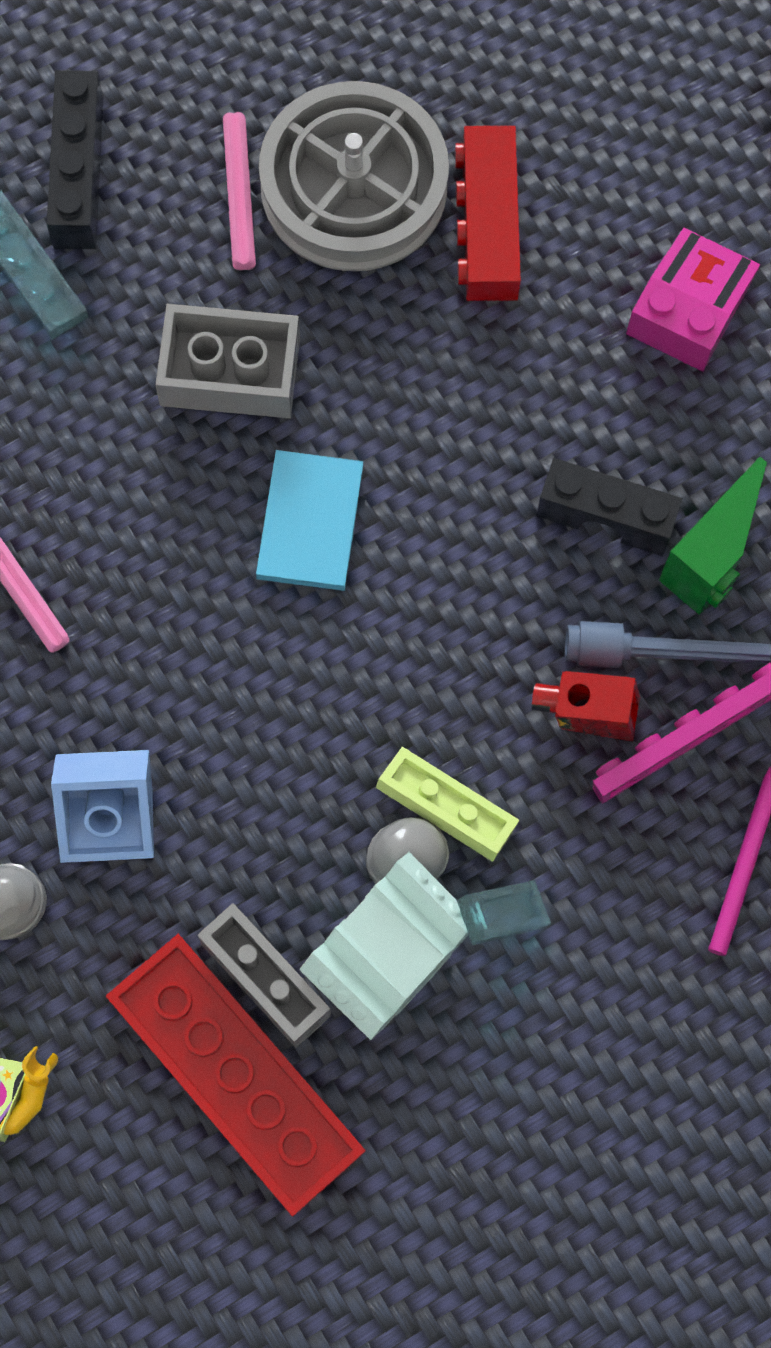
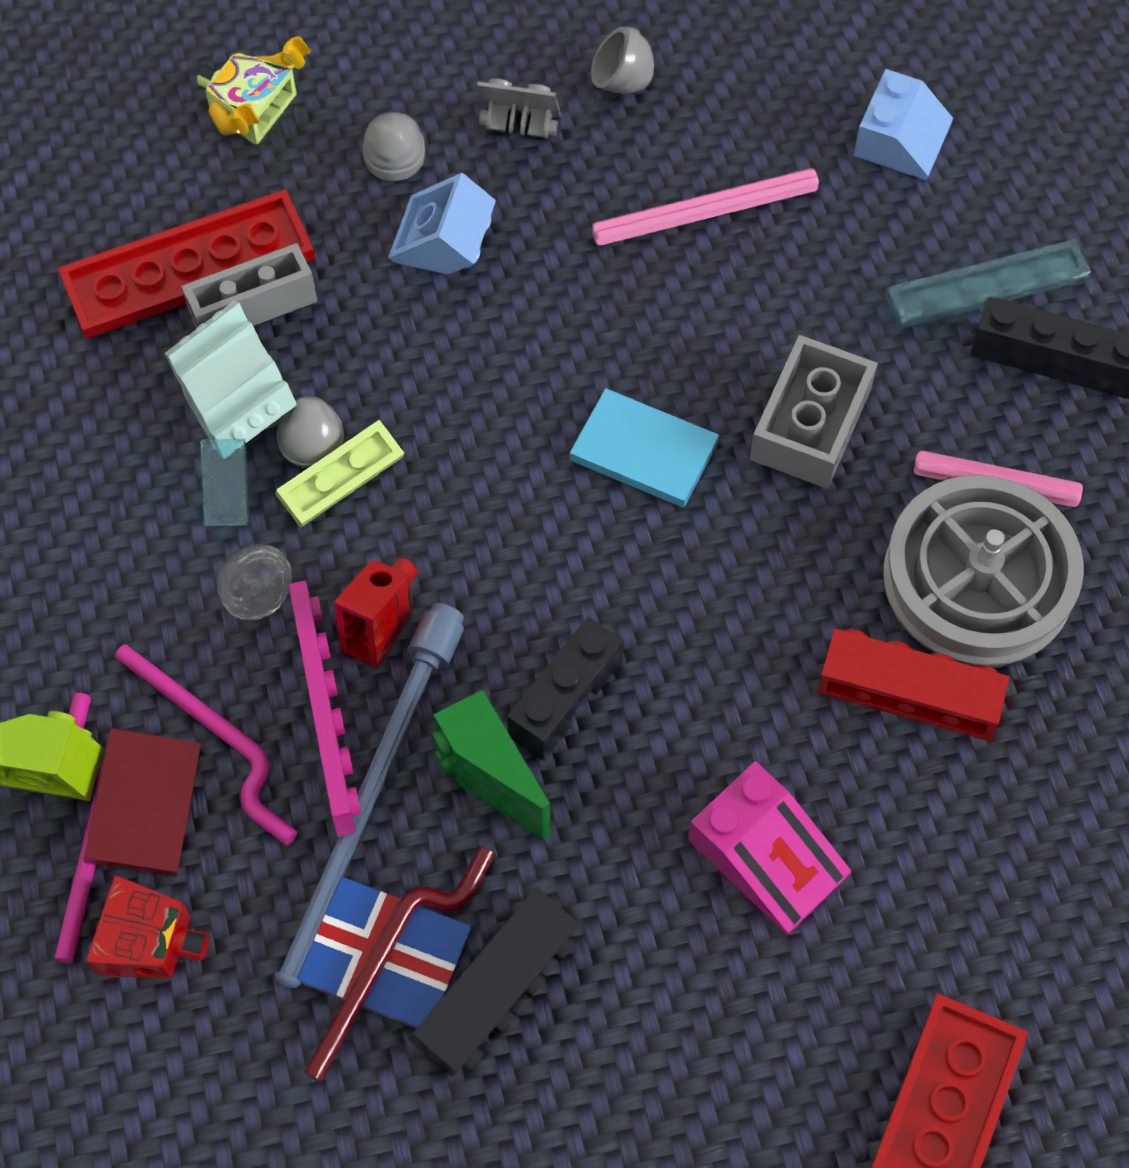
camera: 110 degrees right, 10 degrees down
(604, 841) = (254, 581): none -> clear hat

